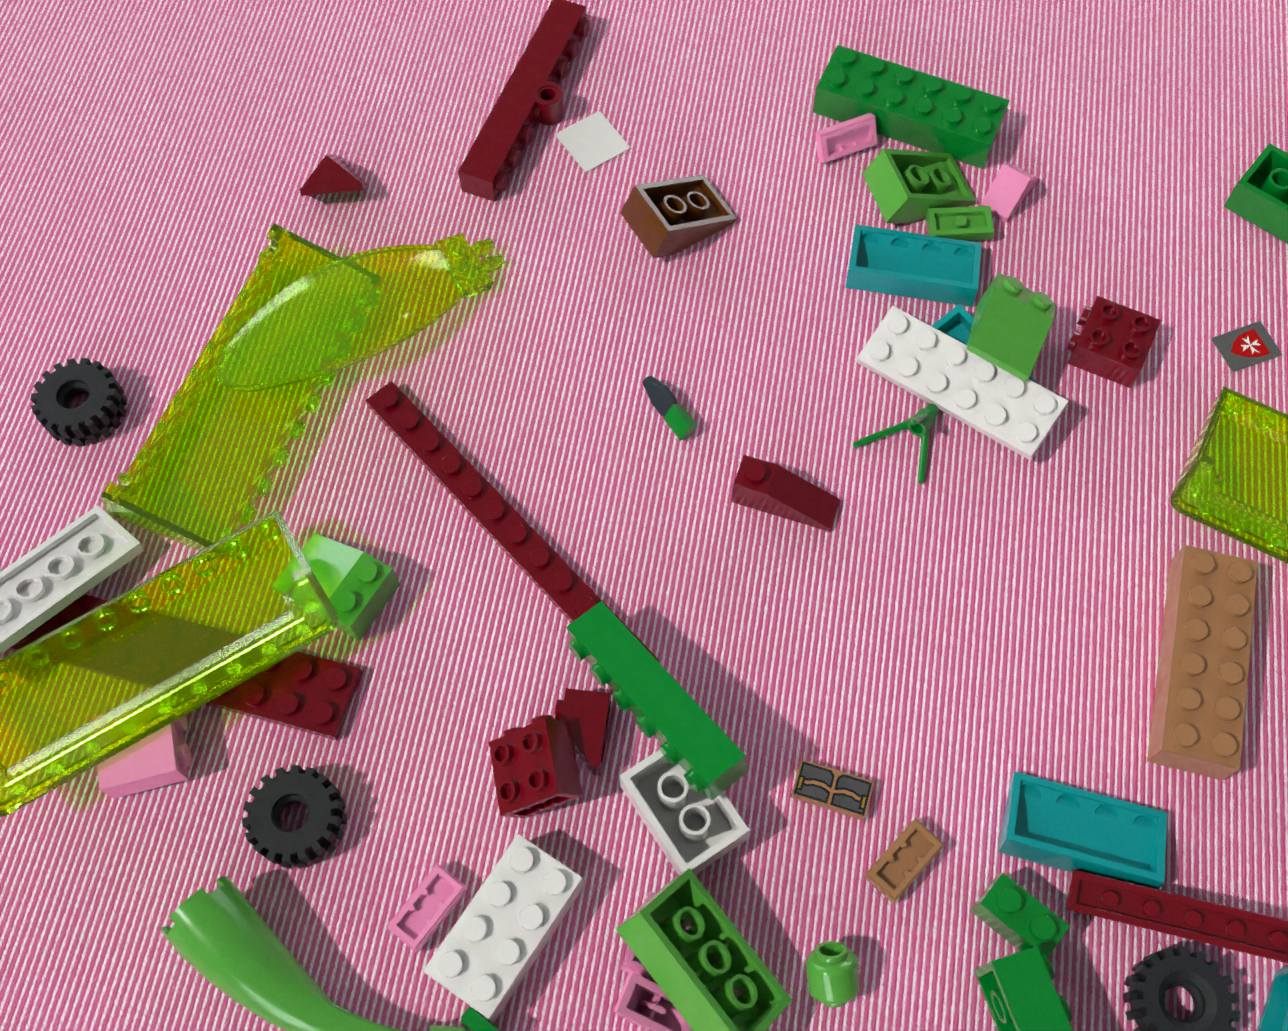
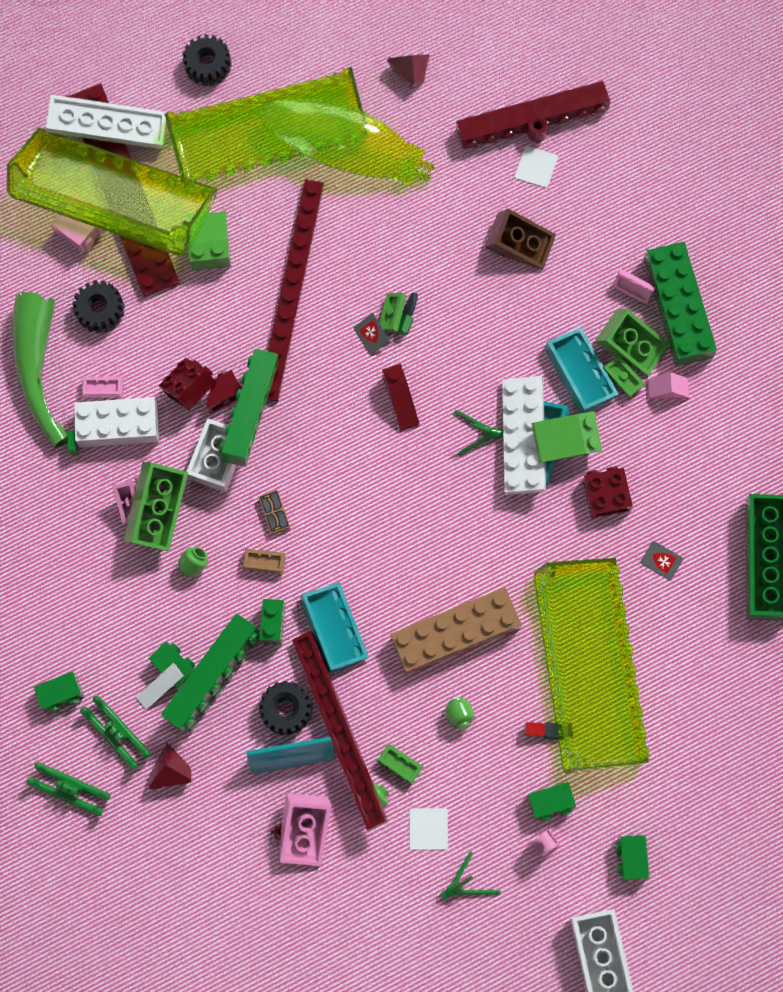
camera: 55 degrees right, 10 degrees up
(652, 422) = (392, 311): none -> bright green plate
(660, 470) = (371, 333): none -> dark grey sticker

